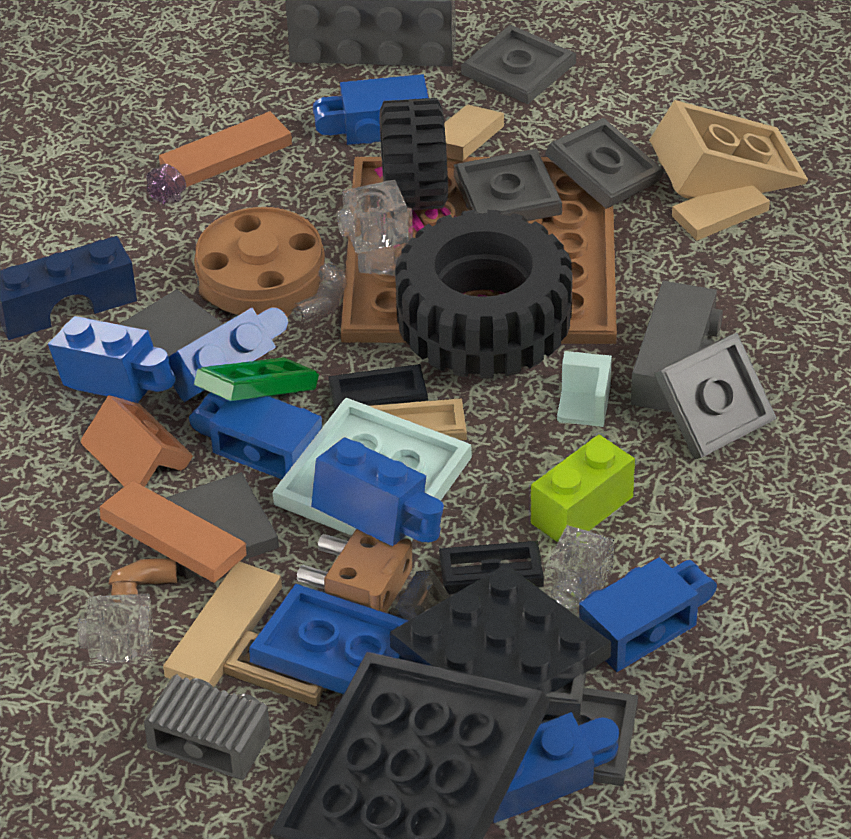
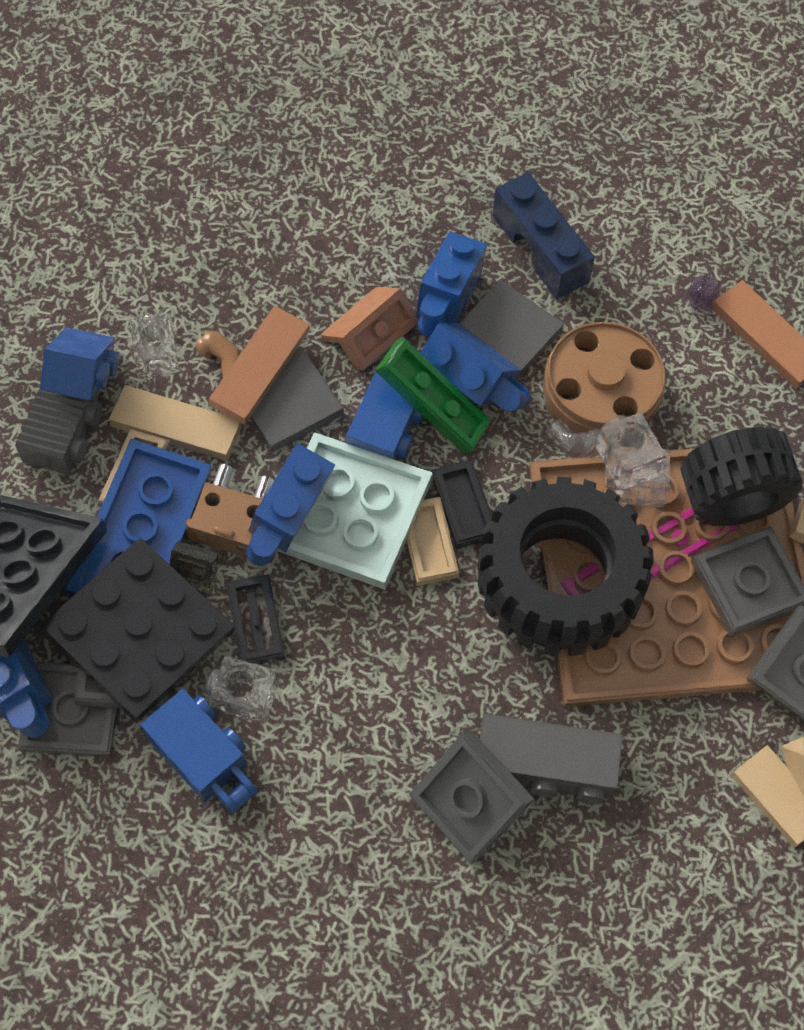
camera: 80 degrees right, 20 degrees up
(143, 676) = (78, 363): none -> blue brick
(583, 488) = (337, 684): lime brick -> none
(584, 388) = (478, 681): light aqua panel -> none

